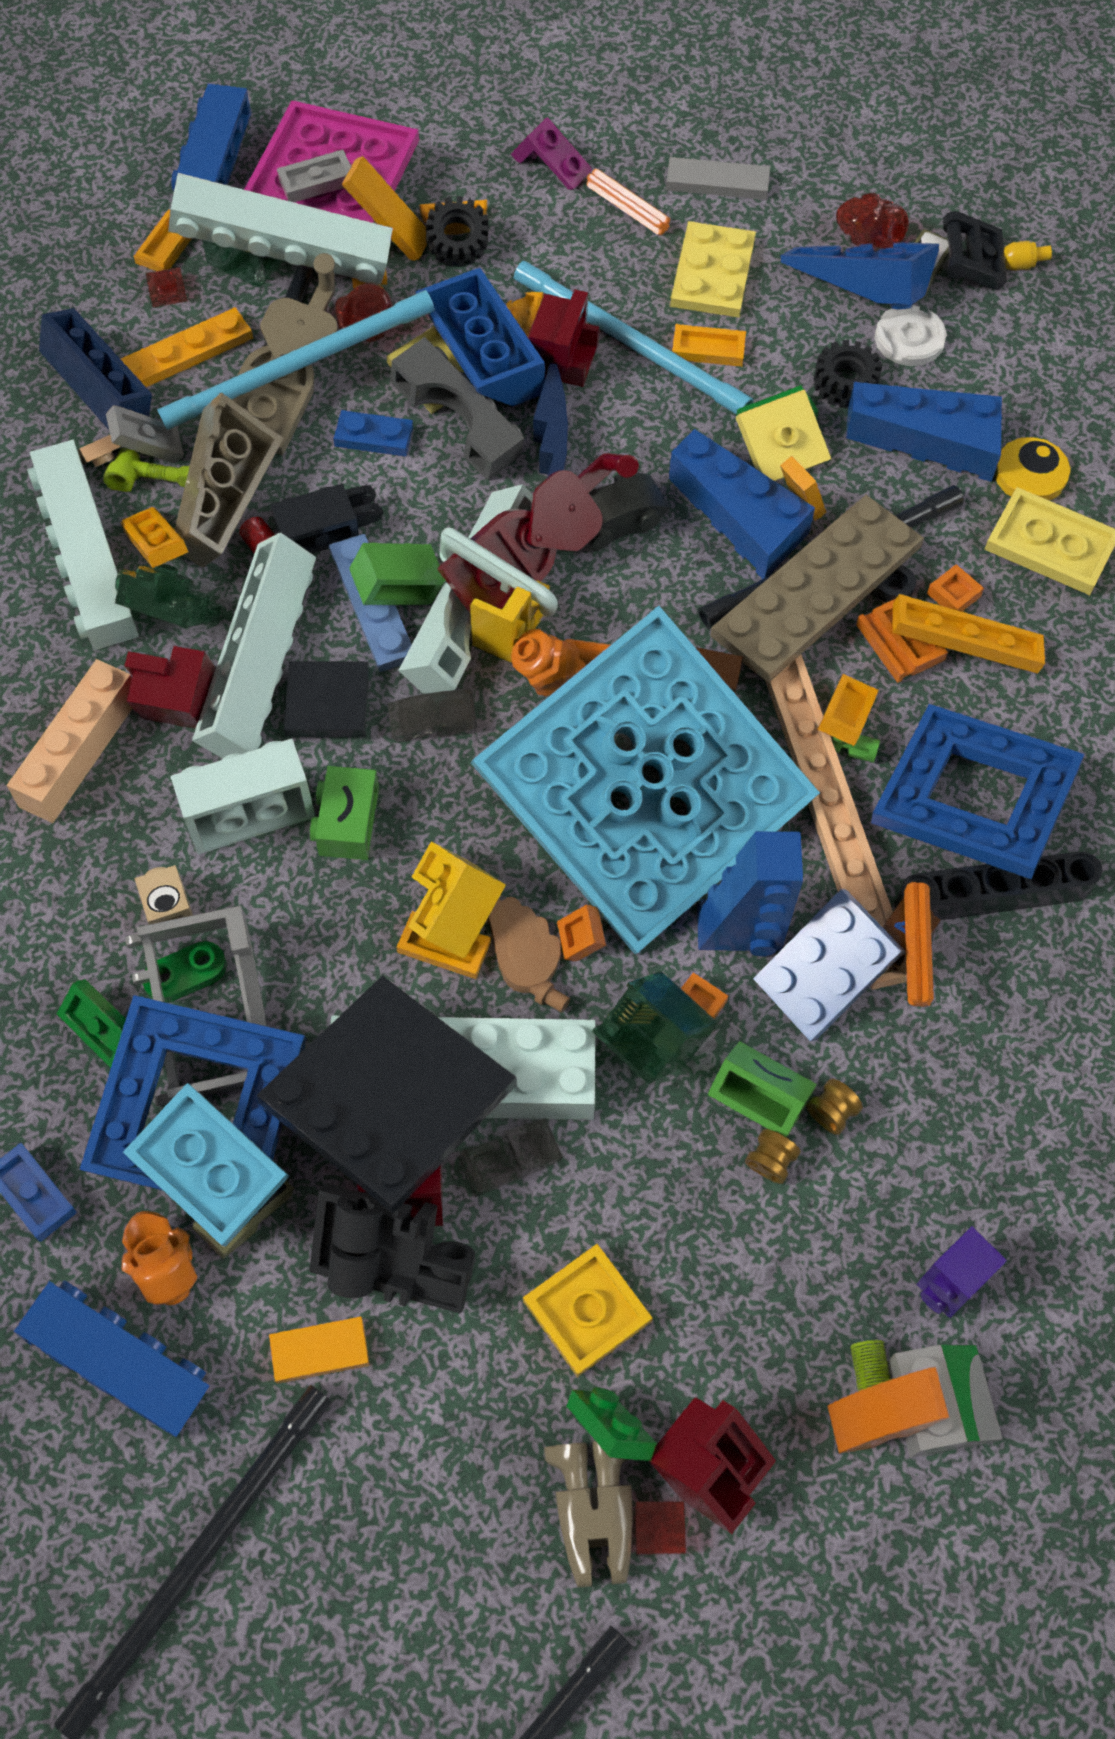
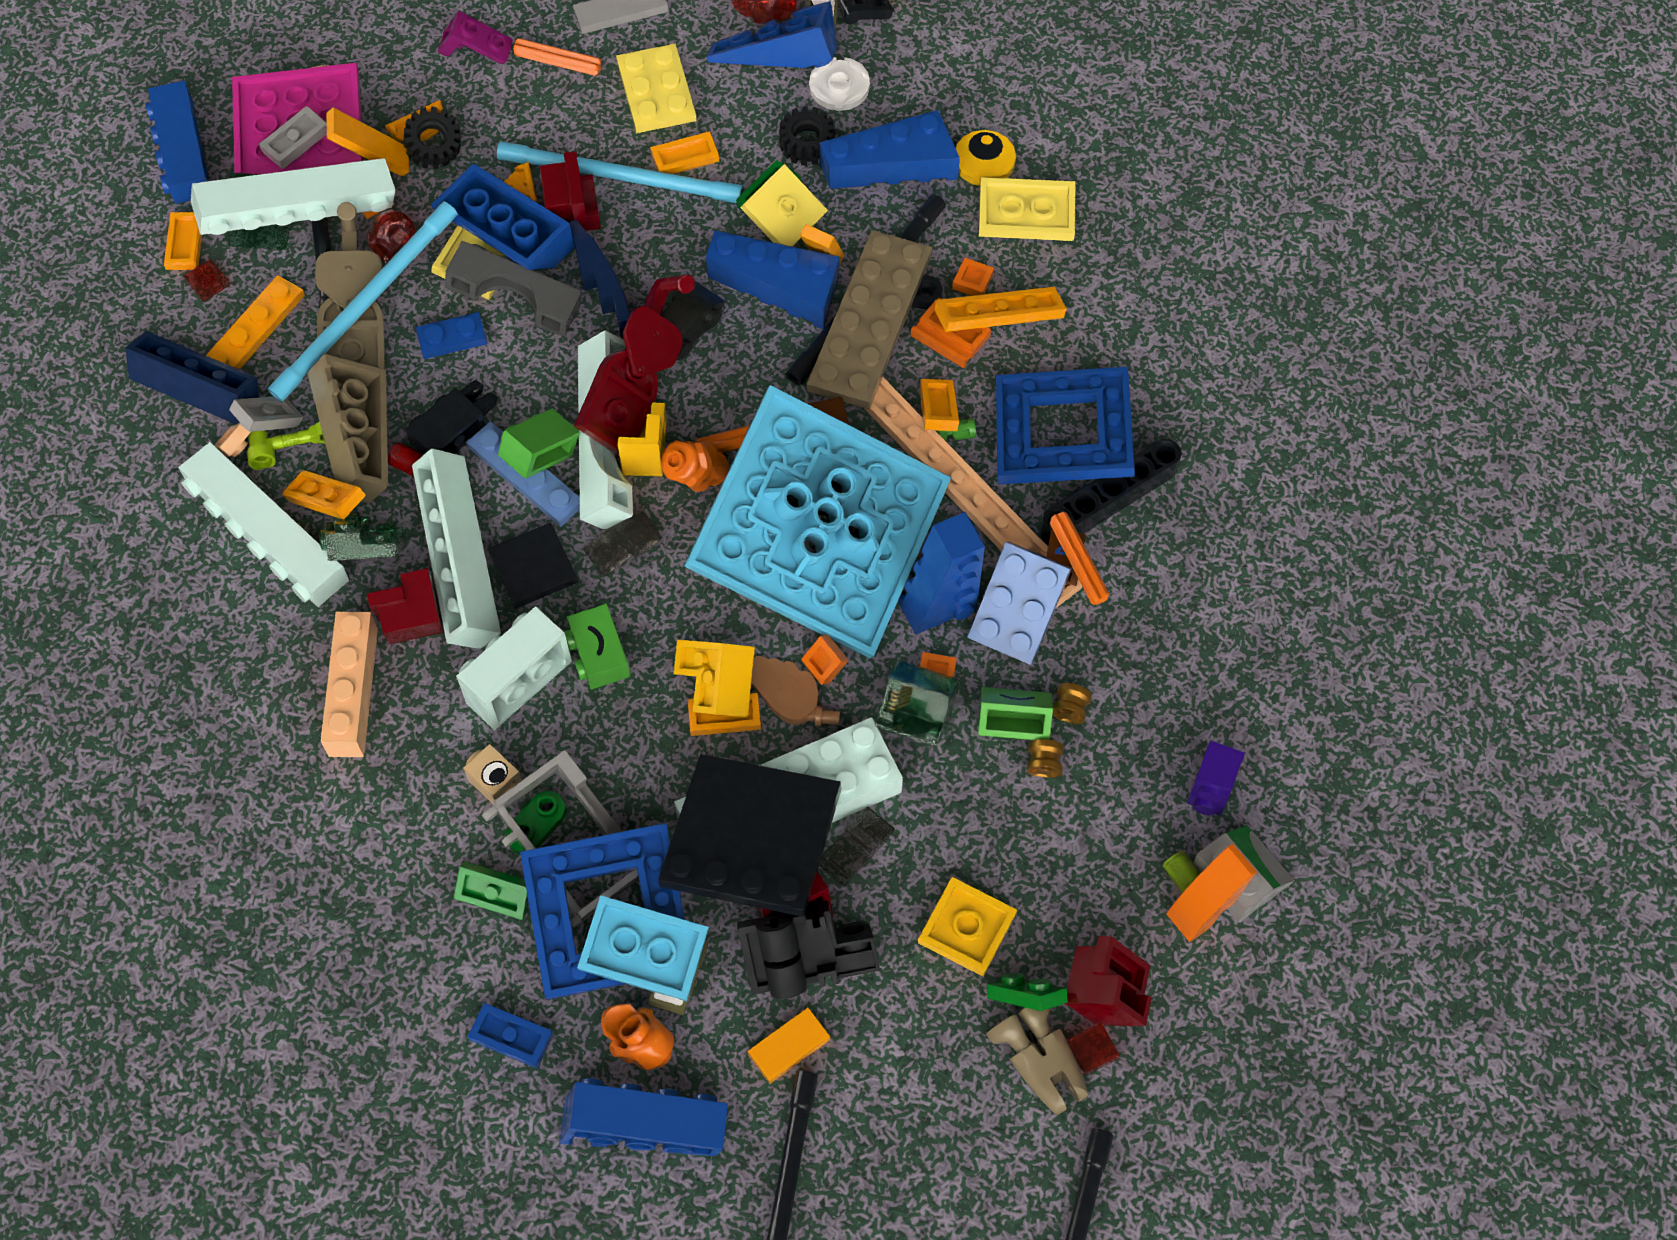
camera: 25 degrees left, 0 degrees up
(455, 542) = (619, 405): light aqua piece -> none

